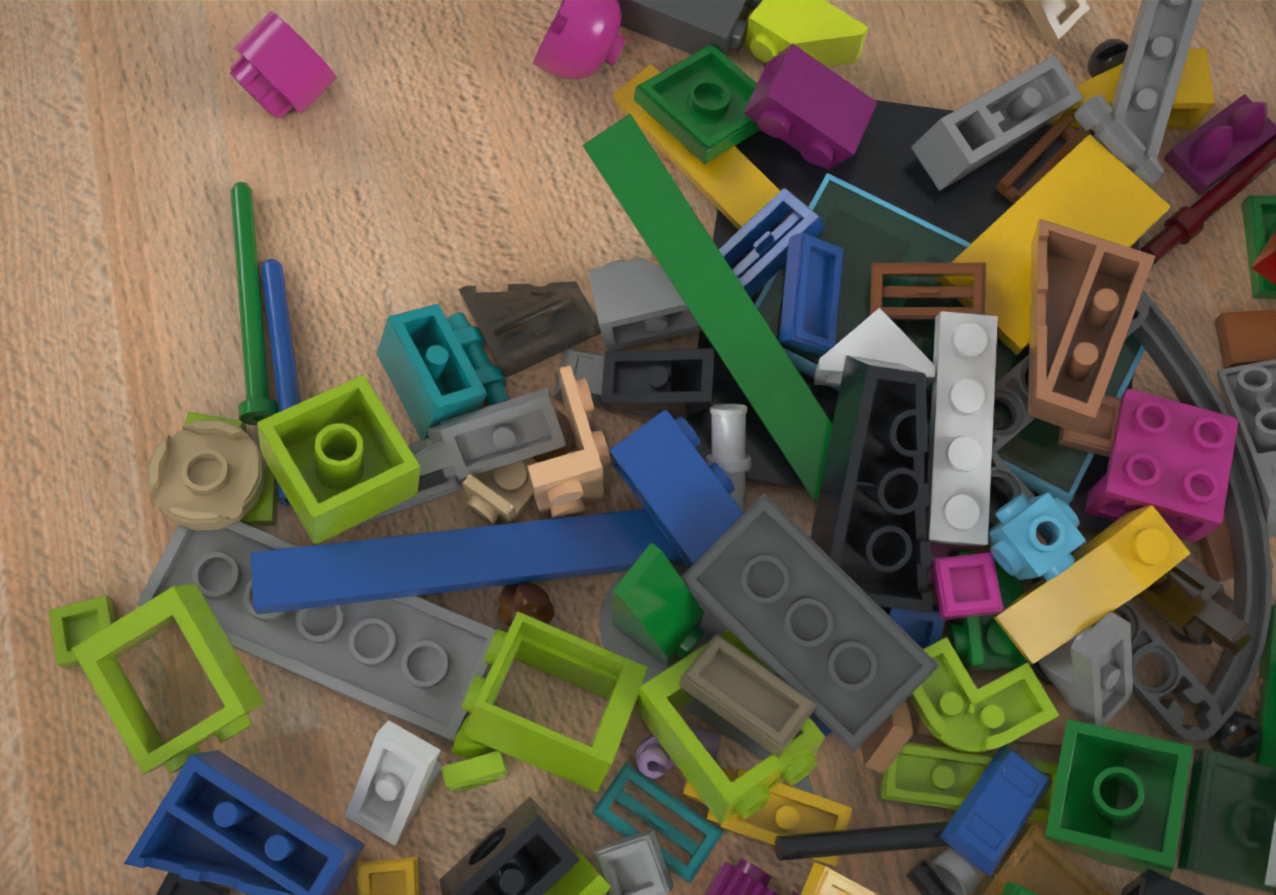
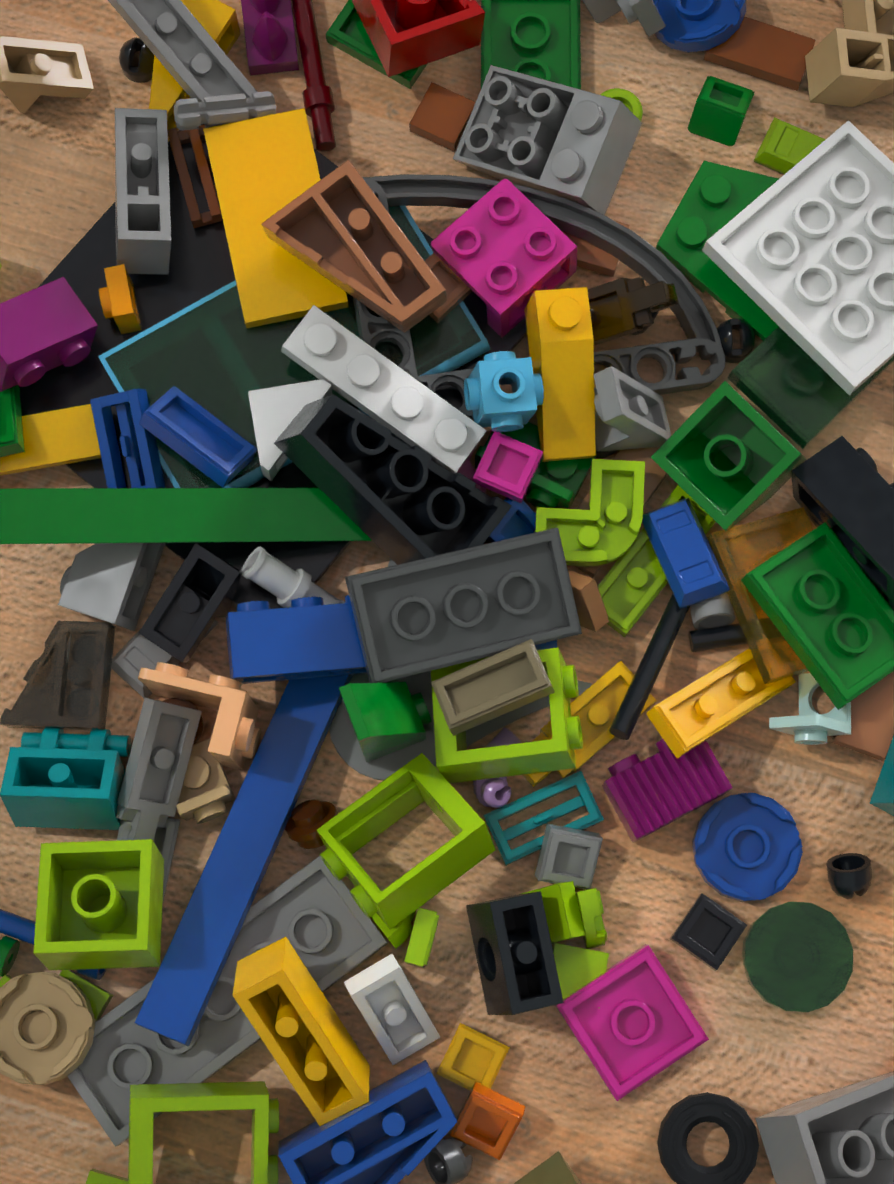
camera: 55 degrees left, 5 degrees up
(320, 708) = (302, 1031): none -> yellow brick
(881, 292) = (229, 380): dark orange tile -> none
(890, 163) = (119, 299): none -> light orange plate

